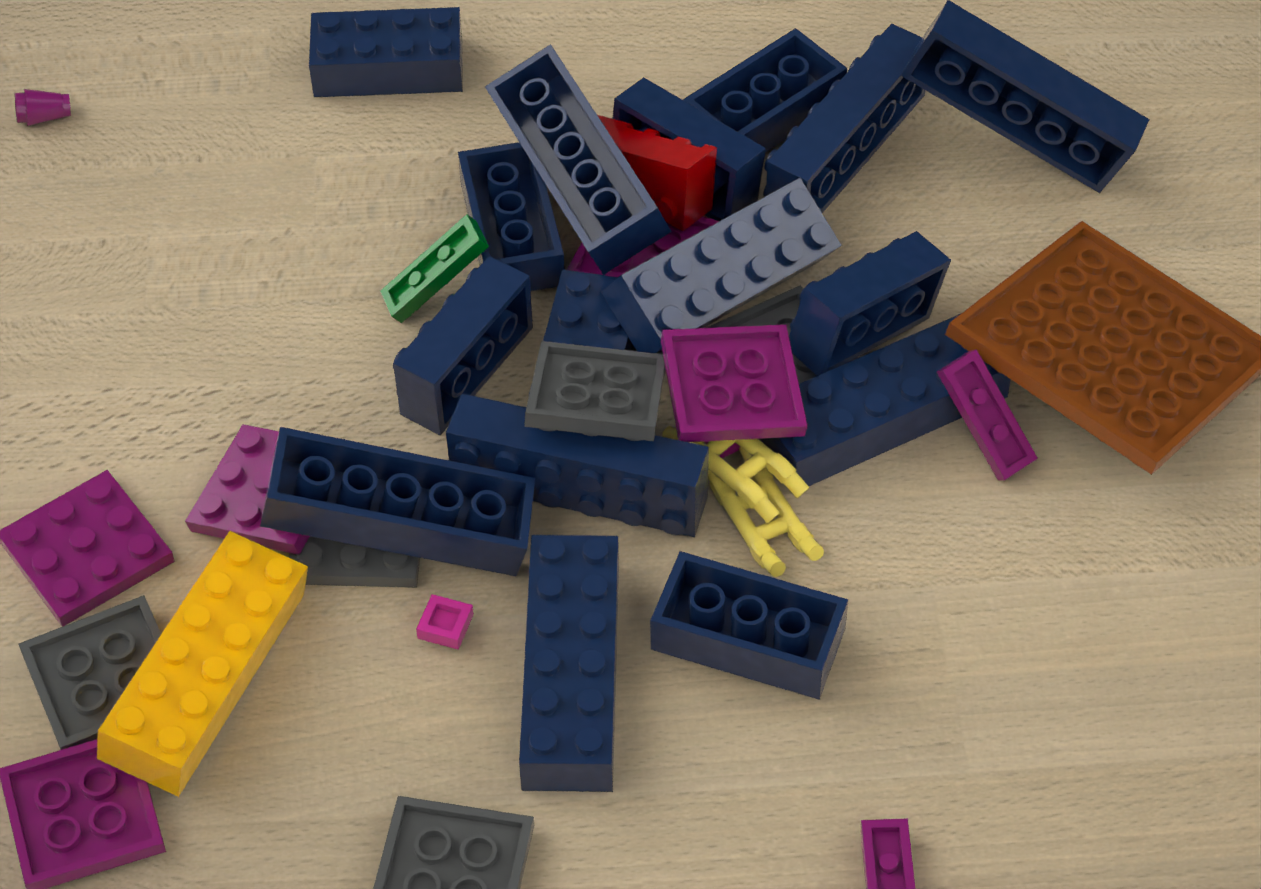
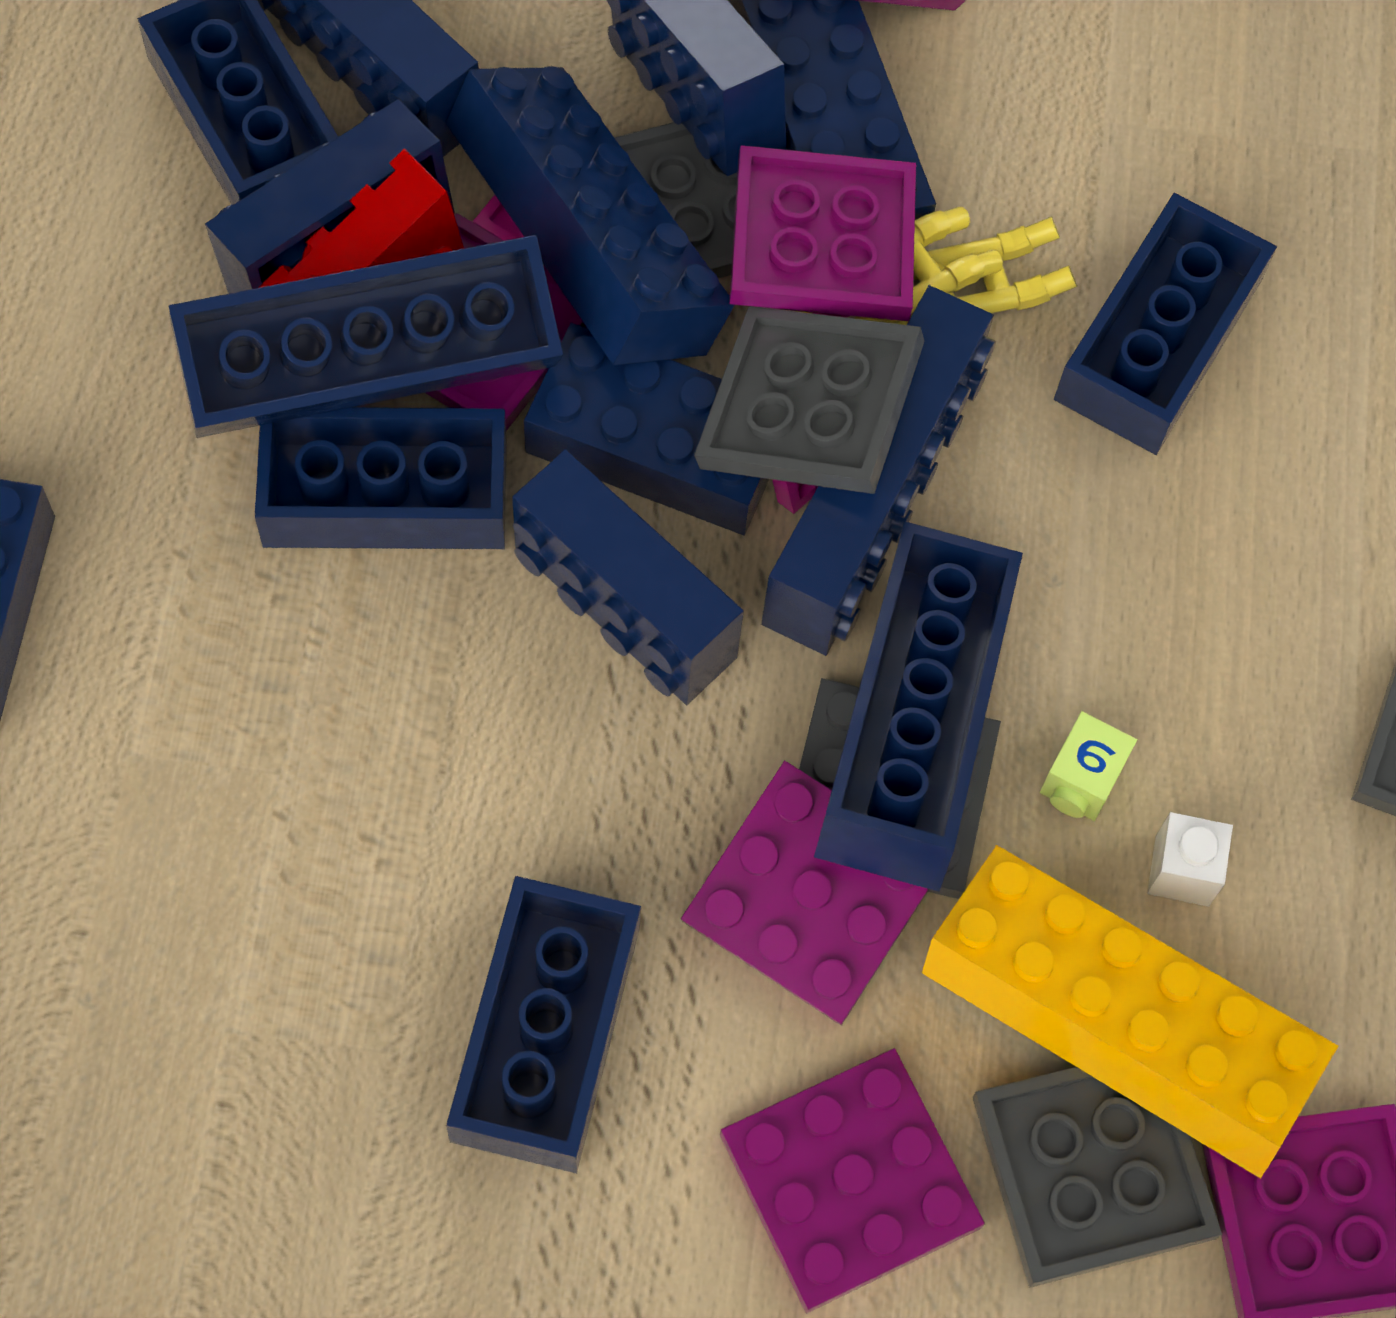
camera: 85 degrees left, 15 degrees up
(158, 362) = (544, 1024): none -> dark blue brick
(326, 696) = (1190, 859): none -> white brick
(386, 629) = (1087, 767): none -> yellowish green brick
(434, 268) = (469, 594): green plate -> none
(445, 621) = (1080, 688): dark pink plate -> none
(570, 664) = (1184, 545): dark blue brick -> none

